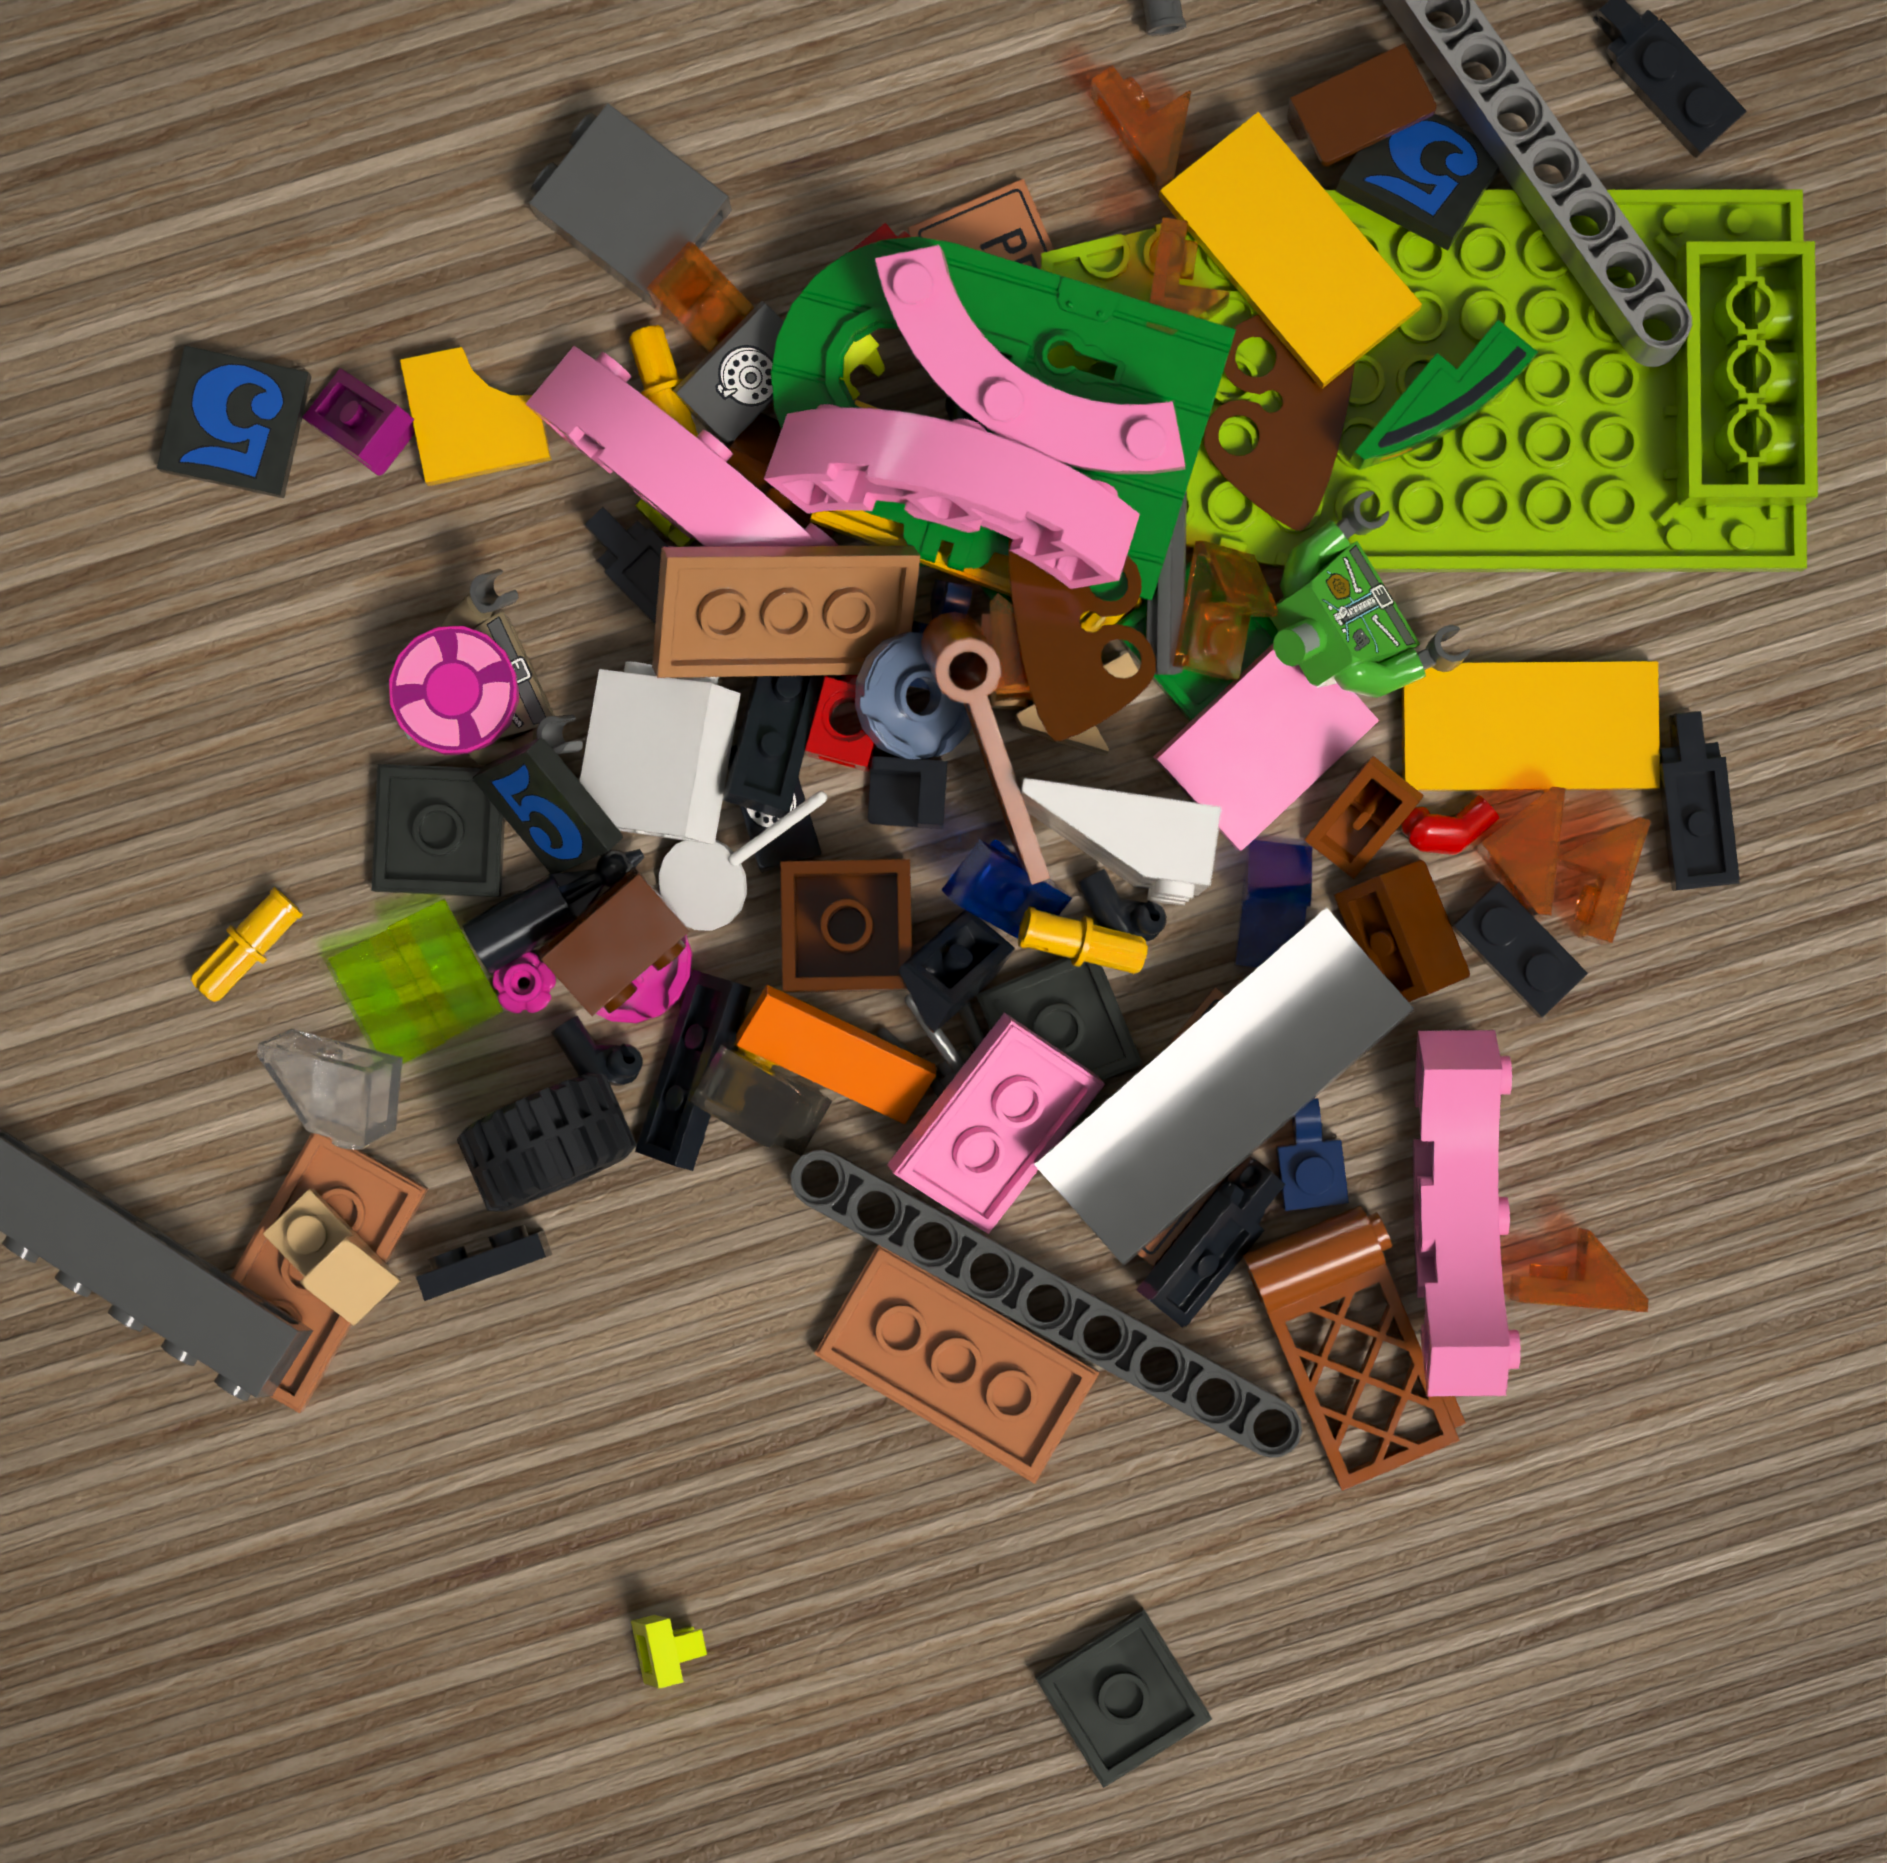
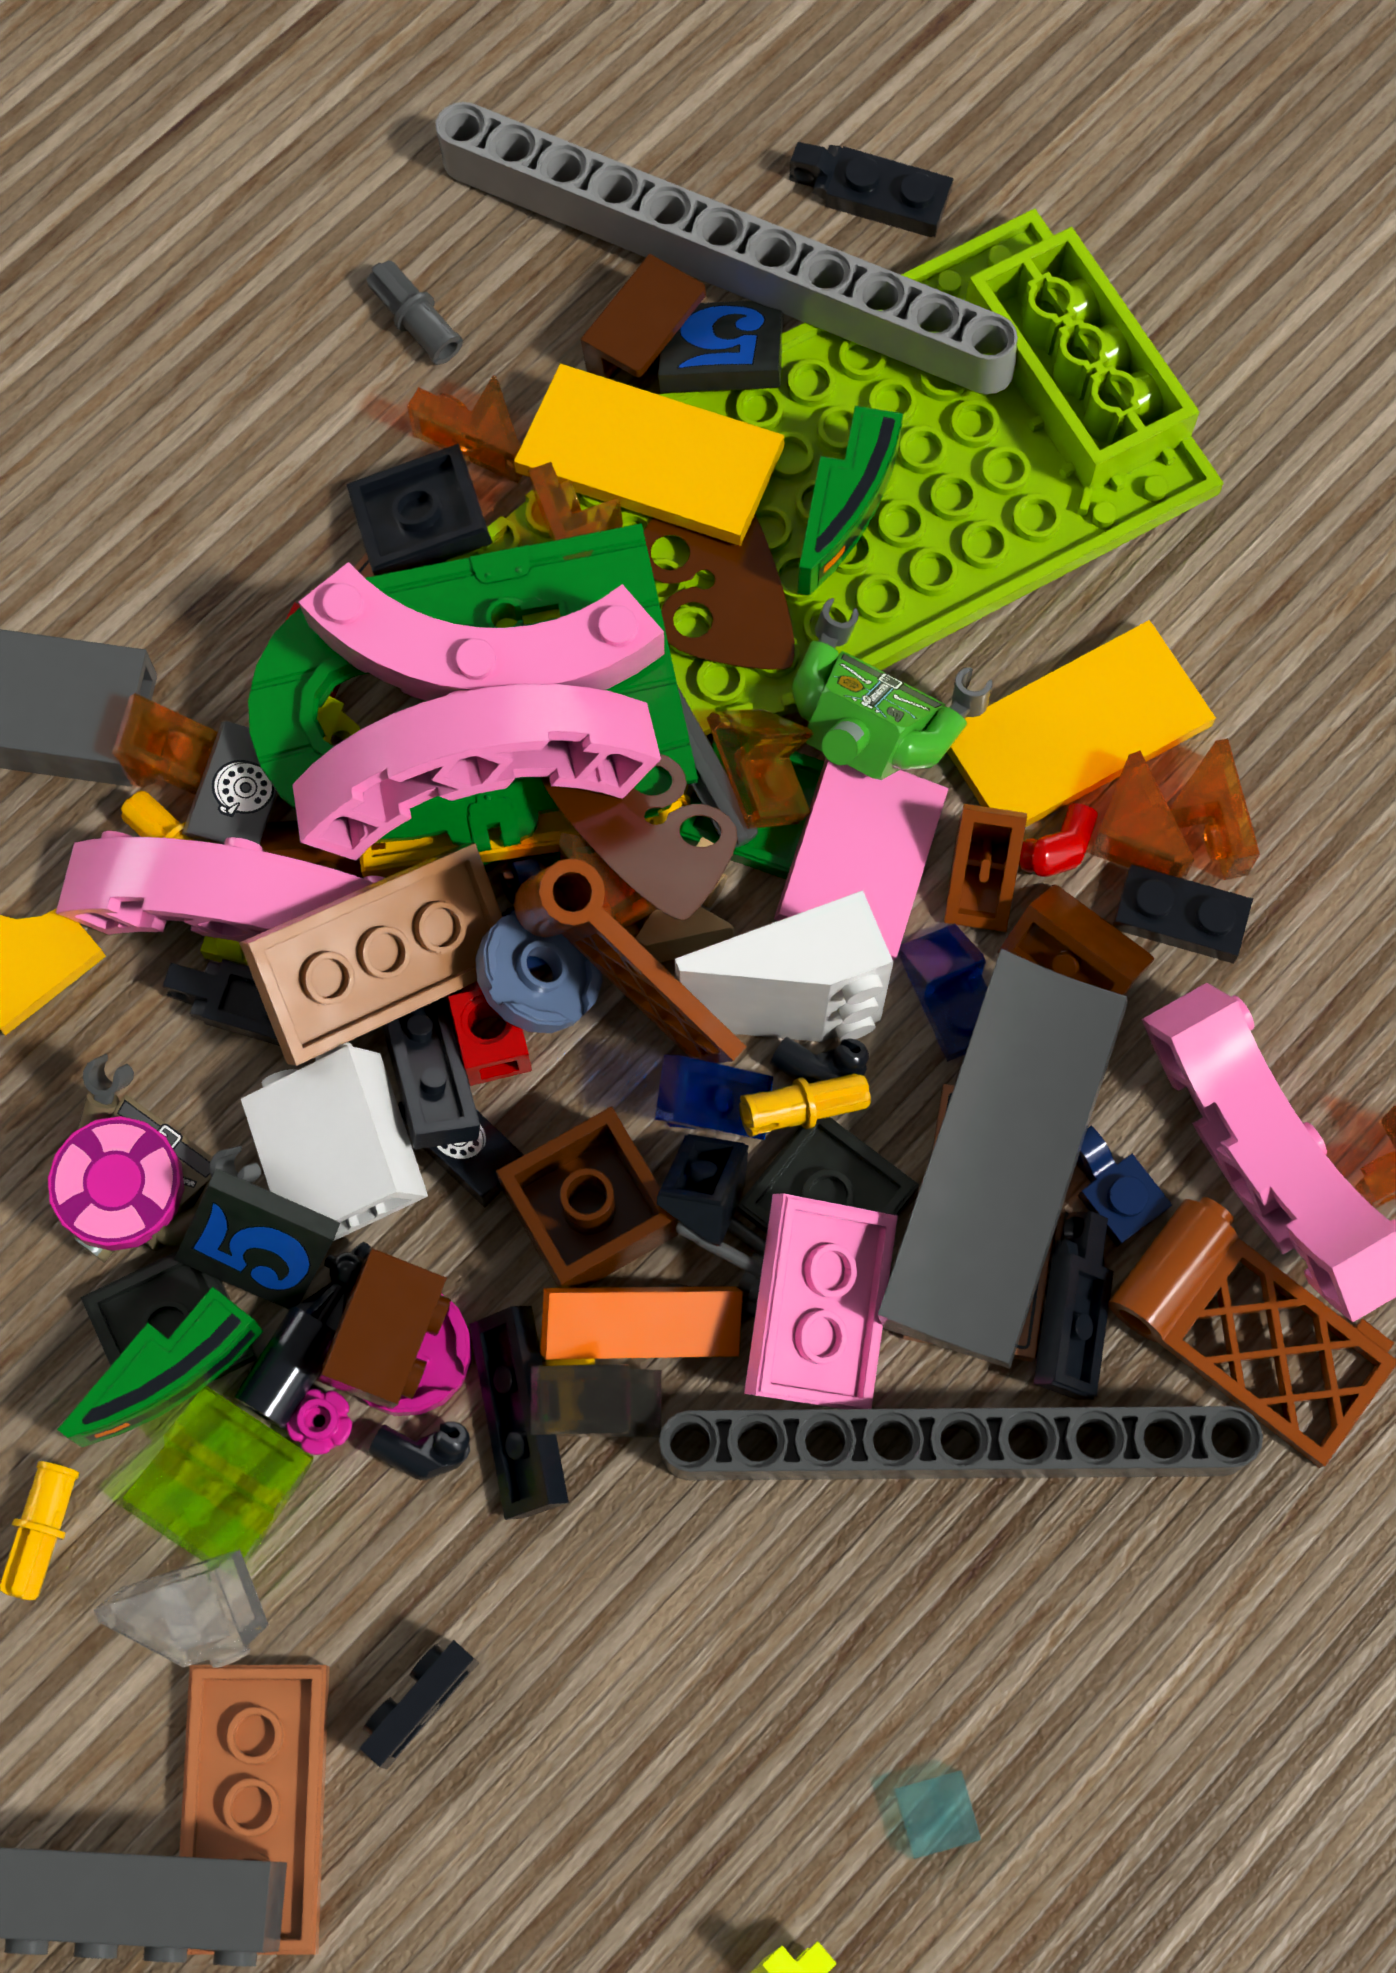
camera: 30 degrees left, 15 degrees down
(331, 1258) = (269, 1779): tan slope -> none
(416, 874) = (162, 1372): none -> green slope
(546, 1142) = (416, 1546): black tyre -> none
(708, 880) = (442, 1230): white piece -> none
(855, 1584) = (937, 1814): none -> clear light blue tile
(907, 792) = (576, 1062): black panel -> none
(957, 1363) = (910, 1549): nougat tile -> none
(1048, 188) = (419, 512): none -> black tile
(1123, 1697) = (1246, 1778): pearl dark grey tile -> none
(1696, 808) = (1256, 717): black hinge -> none

